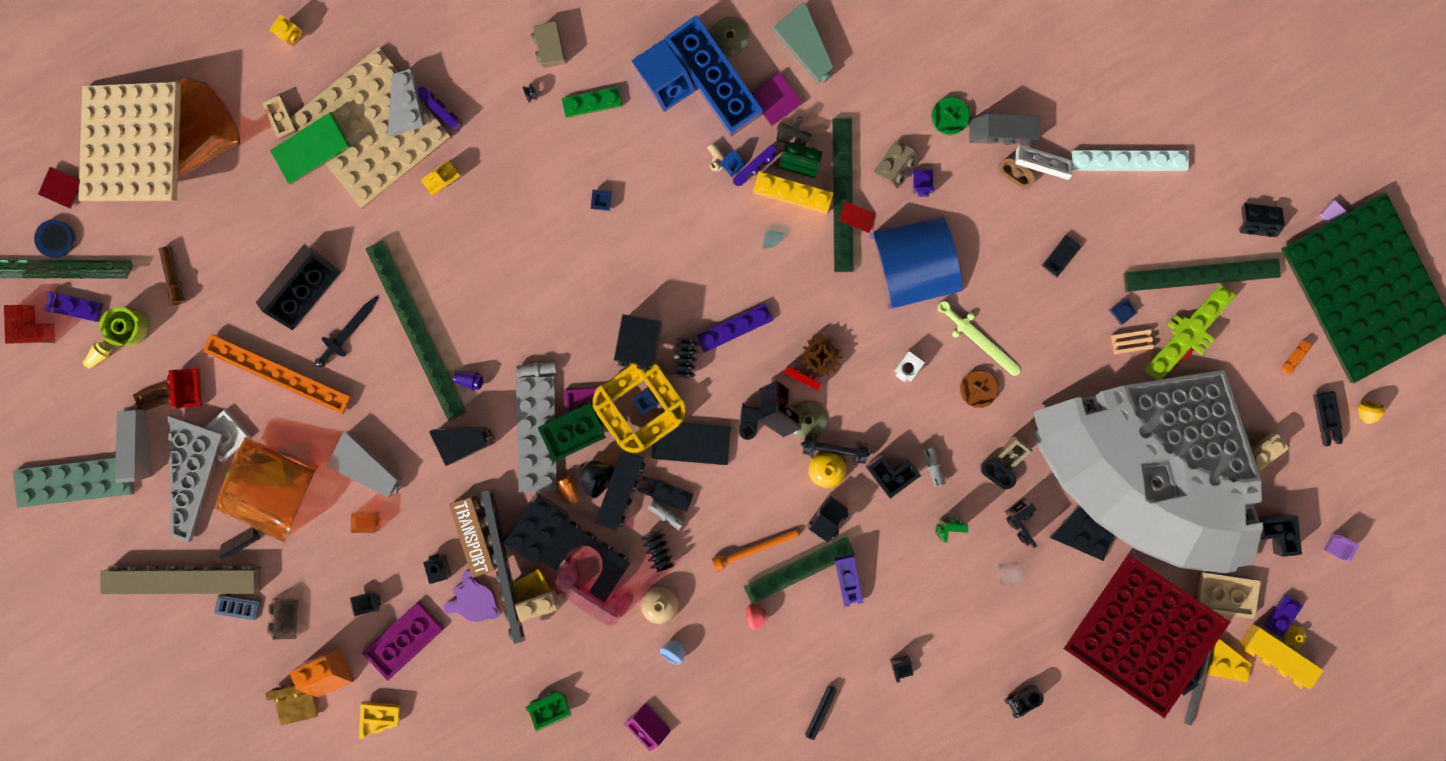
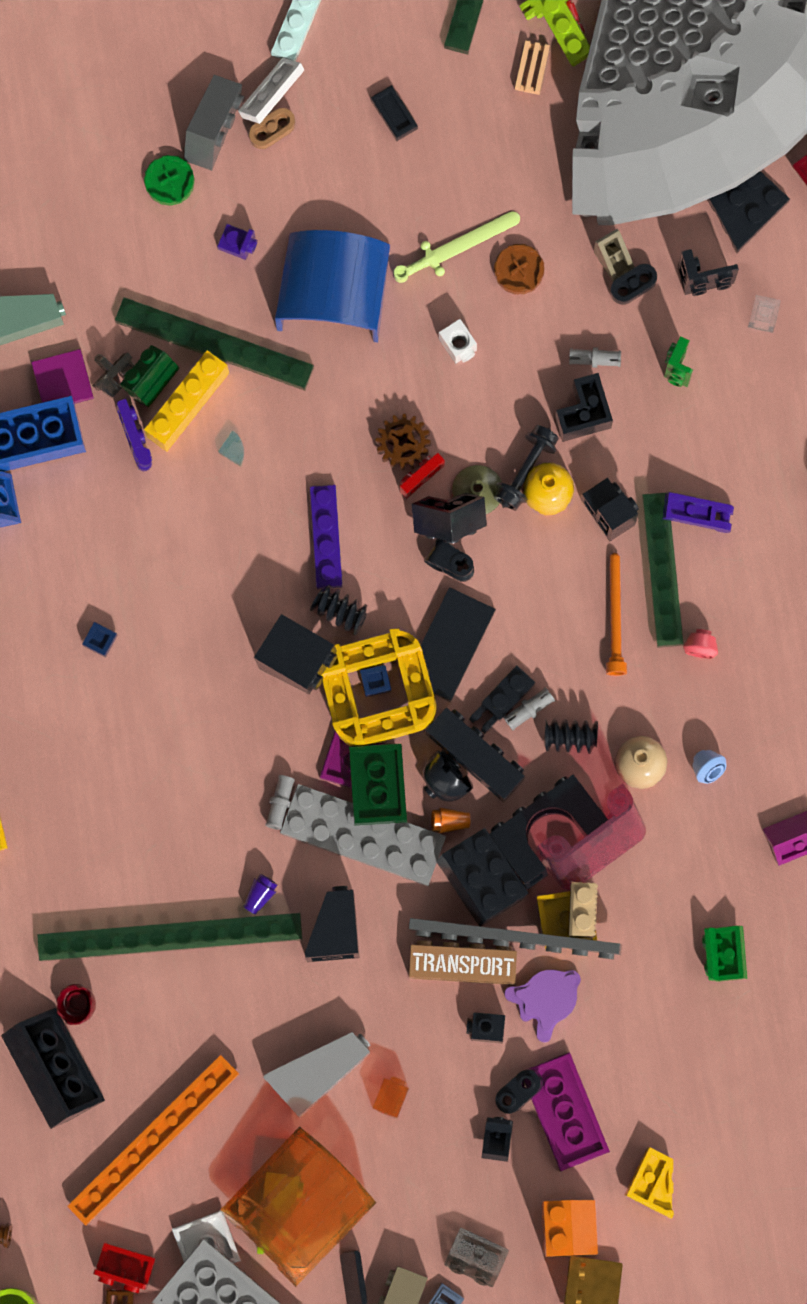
camera: 70 degrees left, 10 degrees down
(335, 345) = (146, 1051): black sword -> none
(345, 285) = (76, 1004): none -> dark red hair
(401, 606) = (518, 1092): none -> black plate
(718, 156) = (106, 477): tan arm -> none
(732, 163) = (120, 461): blue plate -> none
(857, 217) = (248, 335): red sticker -> none
(897, 164) = (202, 264): dark tan bracket -> none
(1123, 311) = (490, 65): dark blue plate -> none

